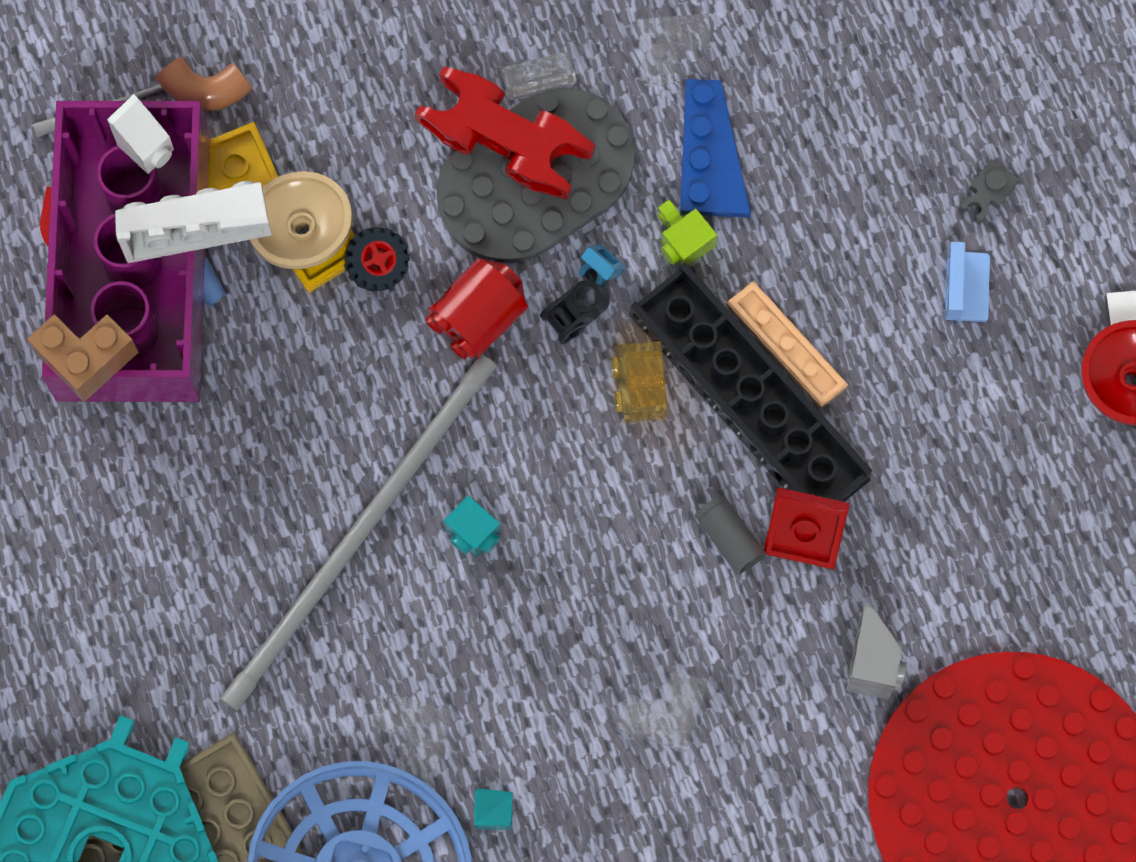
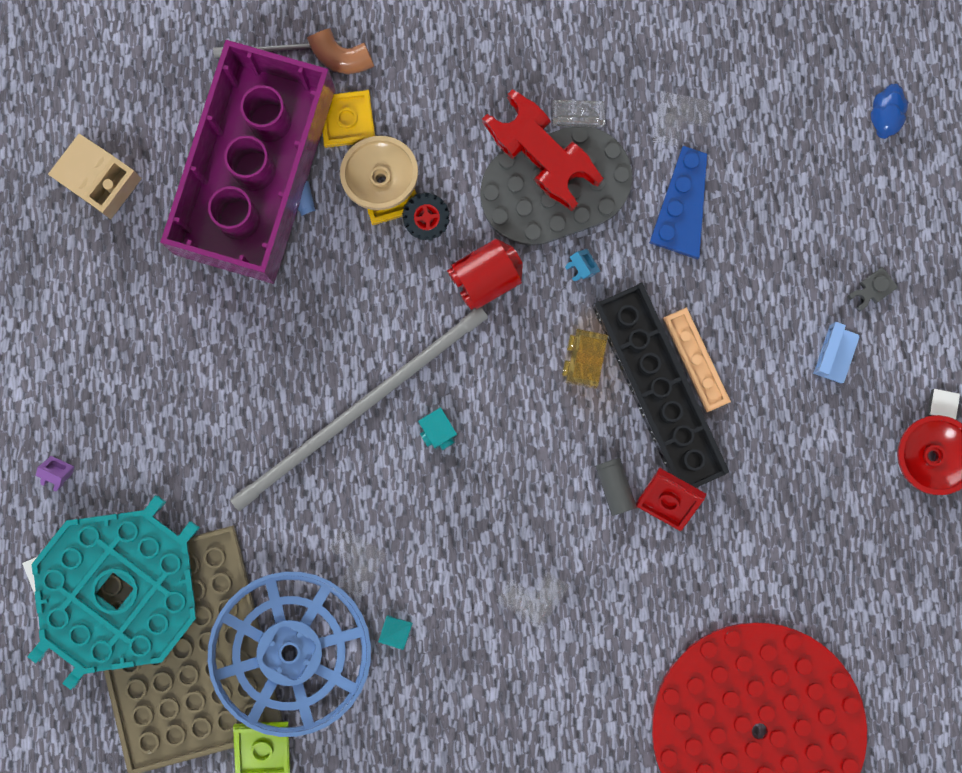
camera: 15 degrees right, 10 degrees up
(83, 362) = (191, 242): medium nougat brick -> none
(140, 135) = (276, 84): white slope -> none
(192, 221) = (295, 159): white wedge -> none
(570, 315) = (551, 294): black piece -> none
(686, 236) = (649, 262): lime brick -> none
(875, 659) = (690, 607): light grey slope -> none

